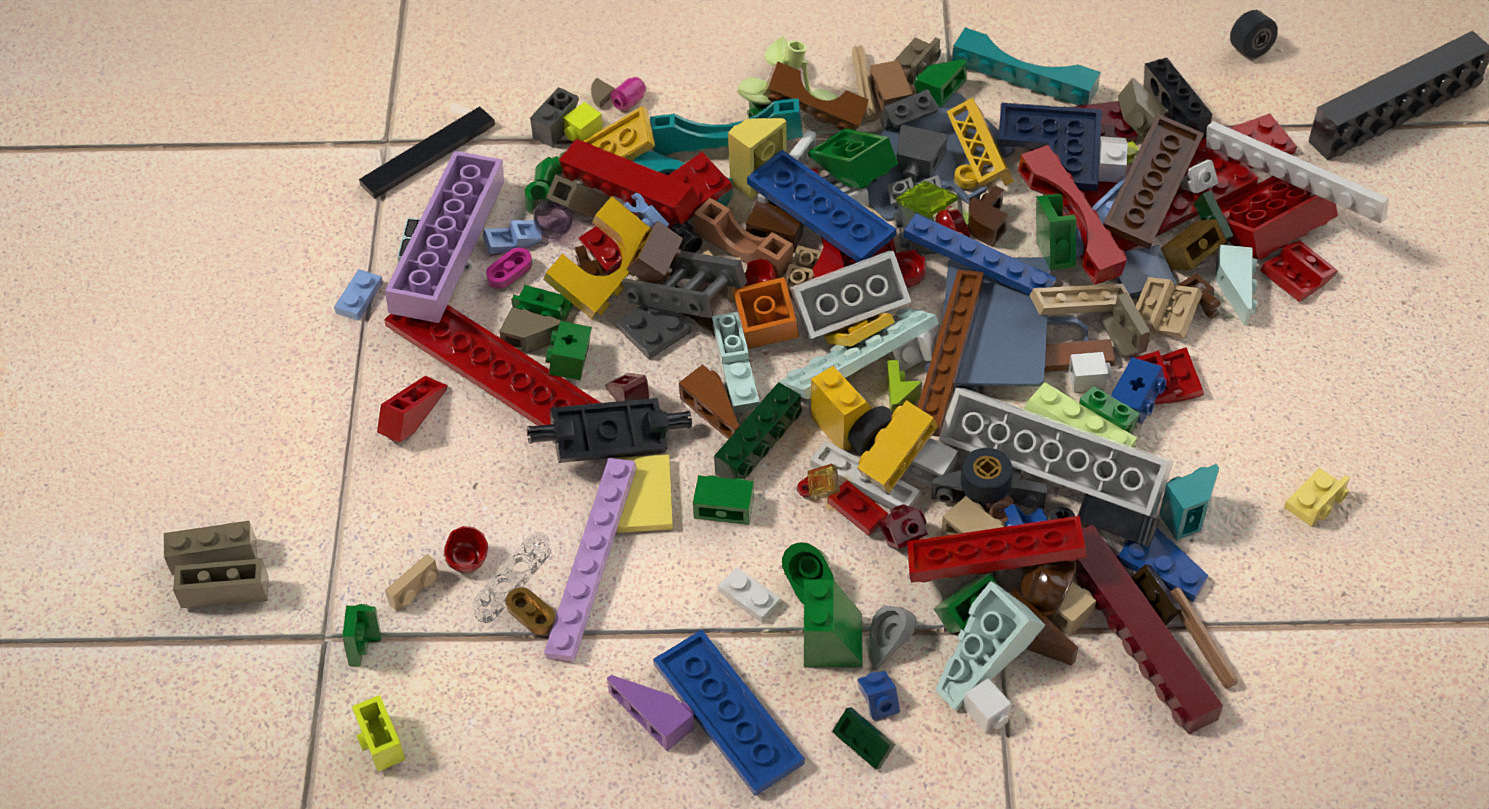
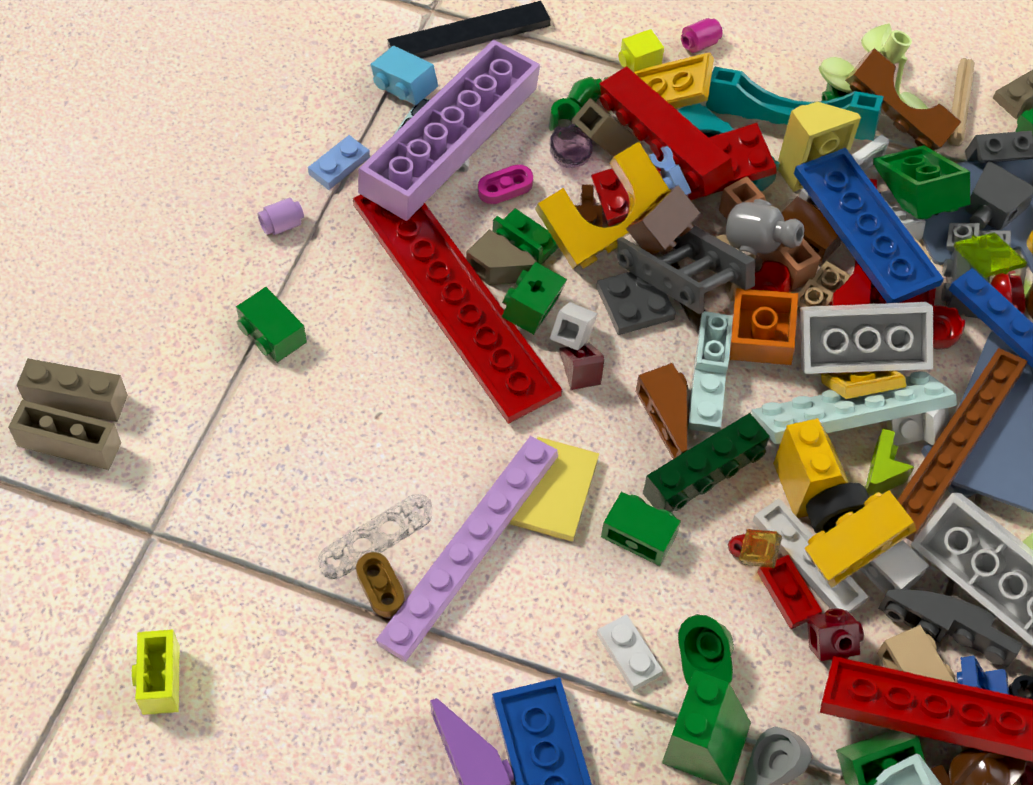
camera: 15 degrees right, 5 degrees up
(328, 354) = (280, 216): none -> lavender brick
(356, 442) = (270, 324): none -> green brick
(359, 627) = (180, 541): green bracket -> none
(387, 204) = (404, 75): none -> medium azure brick
(408, 409) = (339, 305): red slope -> none
(412, 582) = (264, 505): tan plate -> none
(465, 549) = (336, 487): red hair -> none
(518, 235) = (530, 151): light blue slope -> none
(547, 121) = (605, 37): dark grey slope -> none
(600, 92) = (673, 24): dark tan tile -> none
(608, 429) = (542, 403): black plate -> none
(610, 362) = (573, 326): none -> white brick
(691, 240) = (709, 217): black wheel -> none
(736, 235) = (761, 228): none -> light grey piece
(889, 83) = (990, 111): medium nougat brick -> none
(986, 475) = (953, 610): black wheel -> none
(1003, 503) = (950, 644): nougat plate -> none

